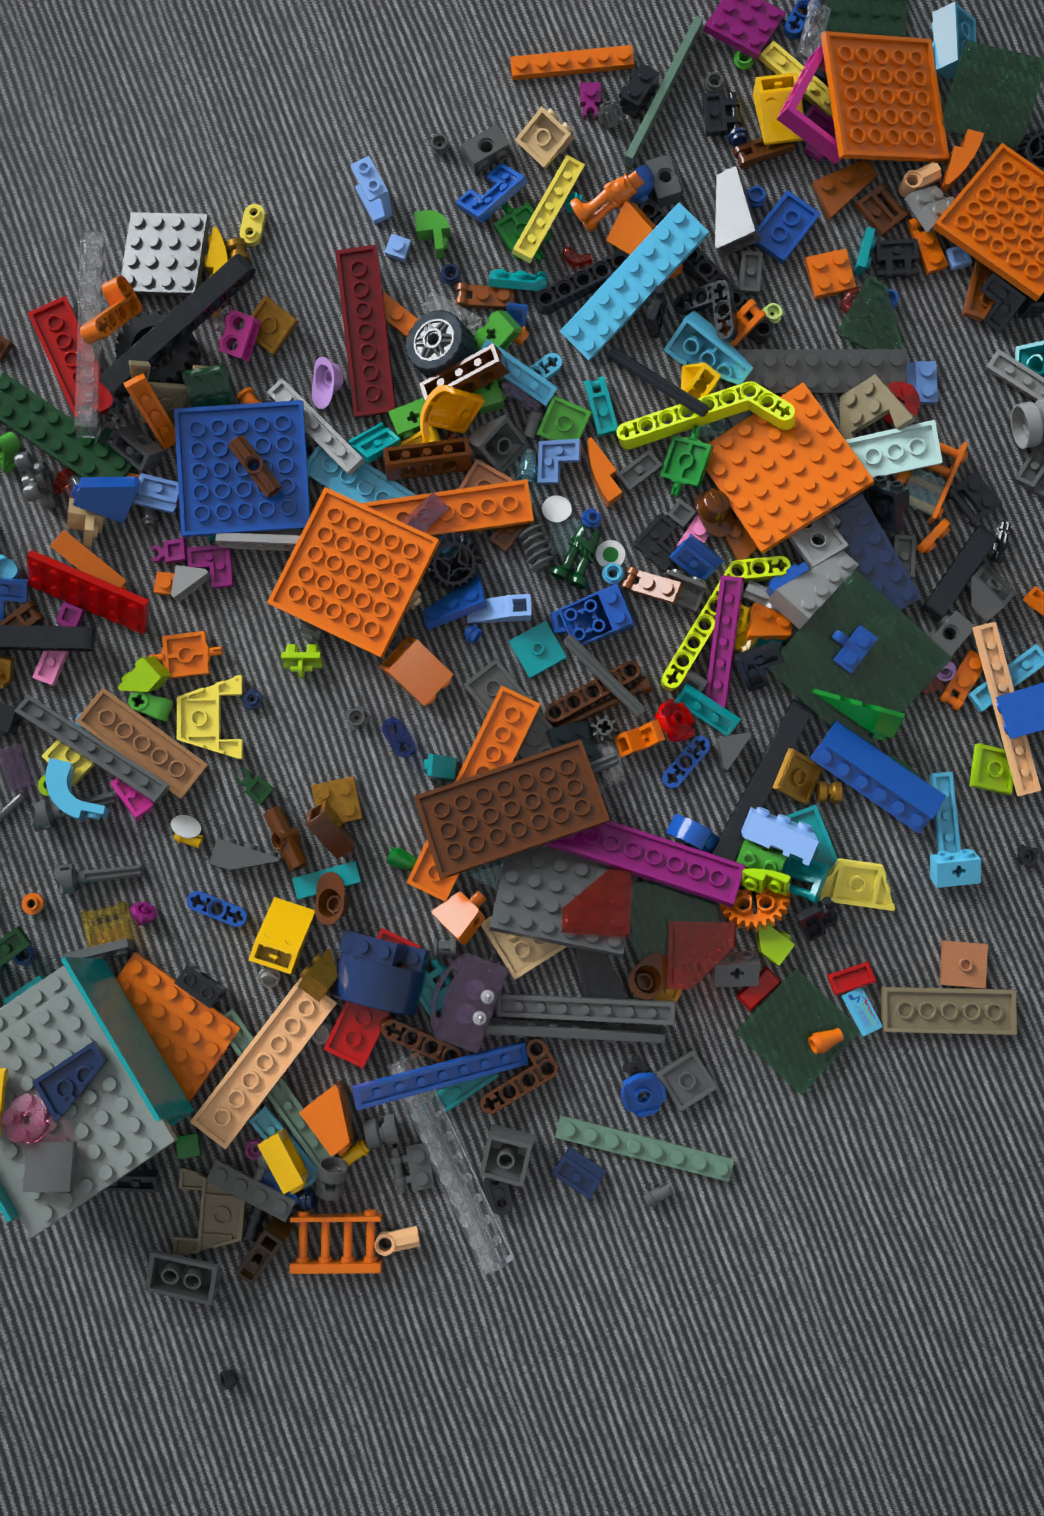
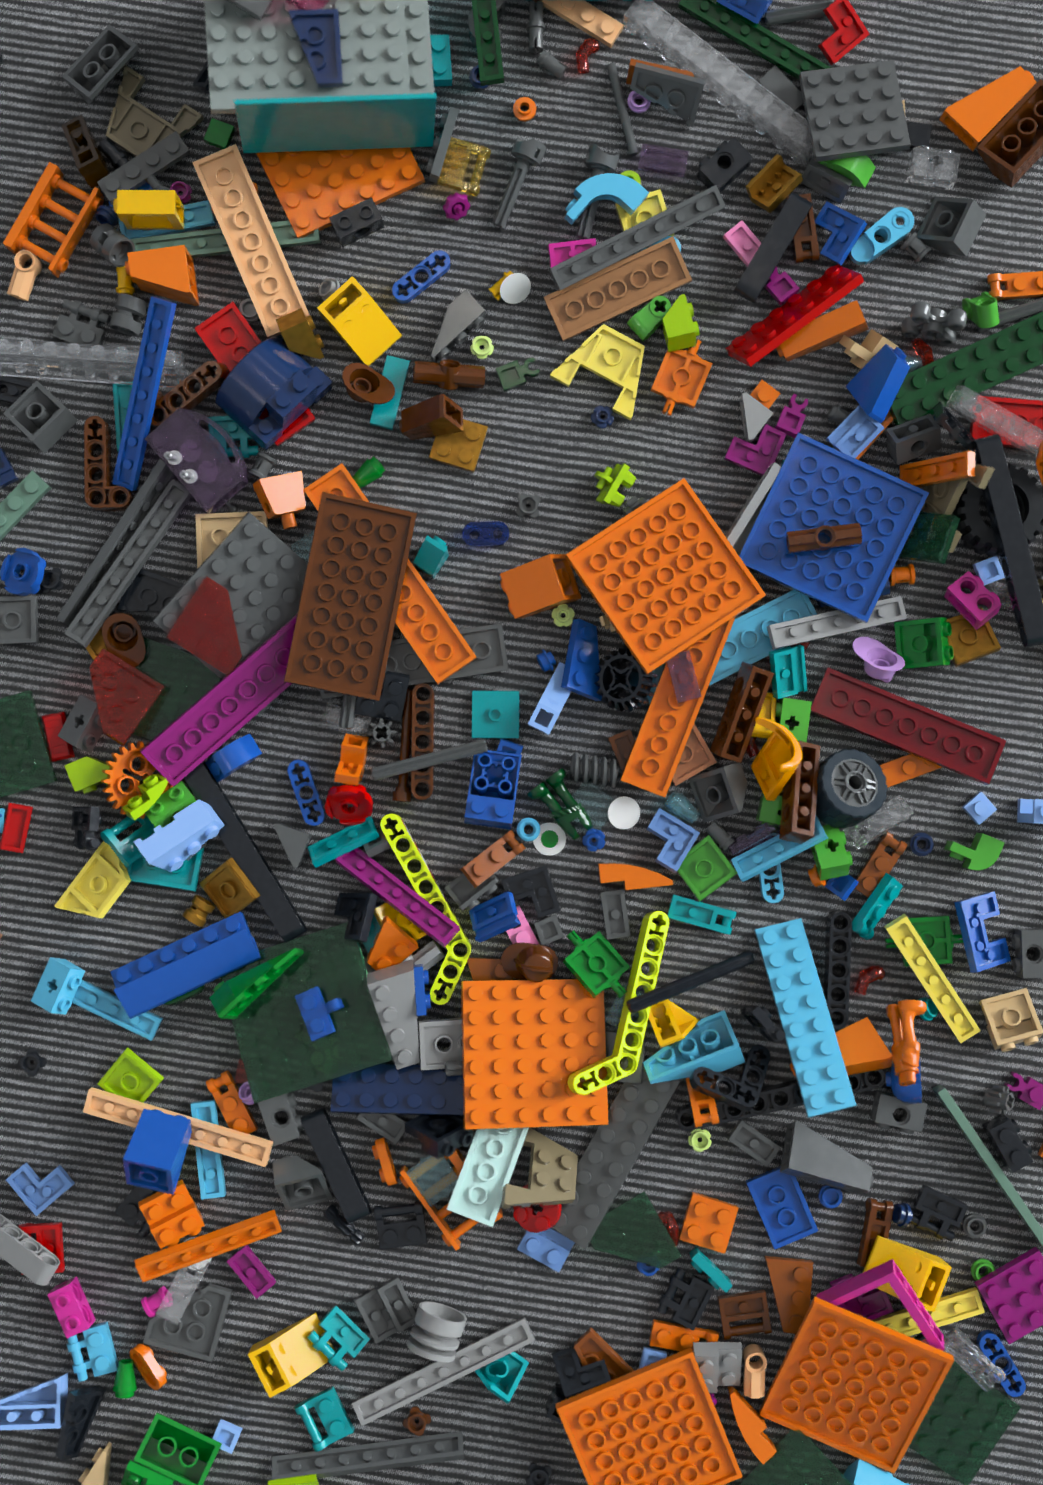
camera: 115 degrees right, 5 degrees up
(209, 338) = (989, 570): none -> light blue plate
(242, 827) = (477, 342): none -> yellowish green plate
(293, 354) = (924, 642): none -> green plate
(435, 641) = (567, 620): none -> yellowish green plate

